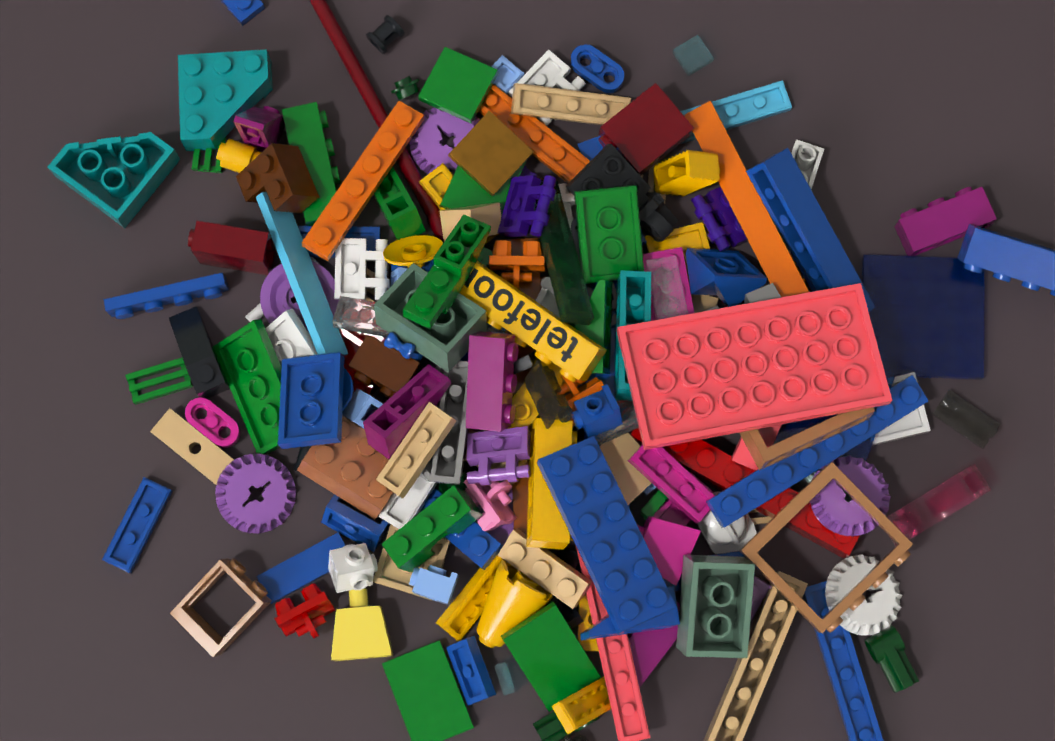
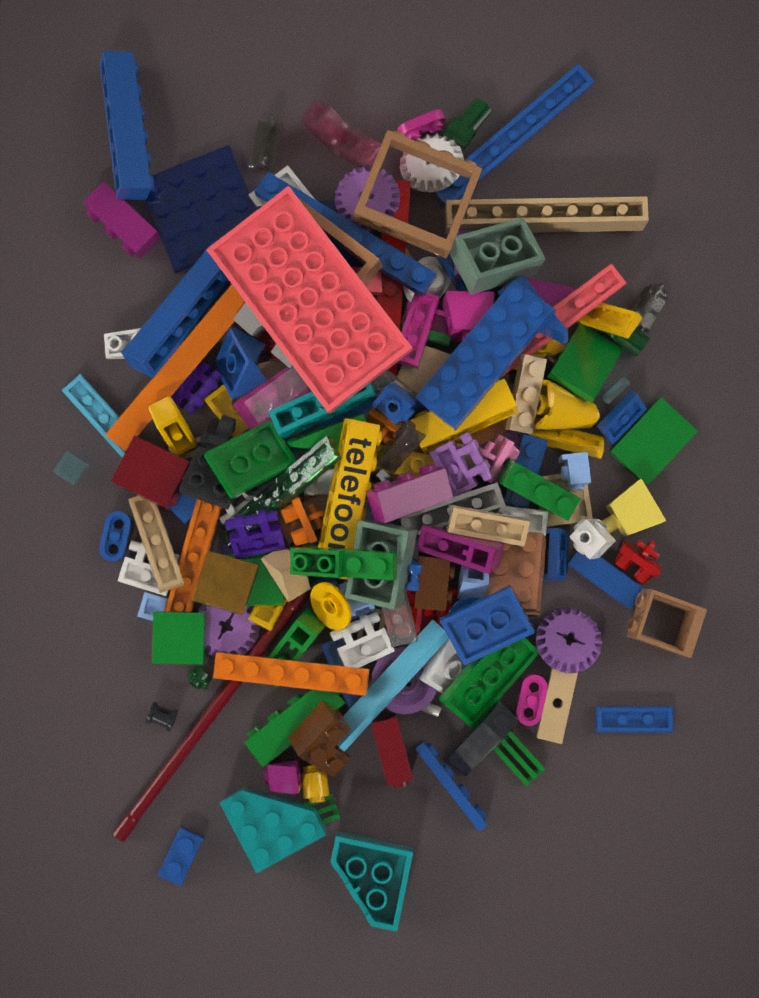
camera: 120 degrees left, 5 degrees up
(912, 617) = (431, 121): none -> dark pink plate

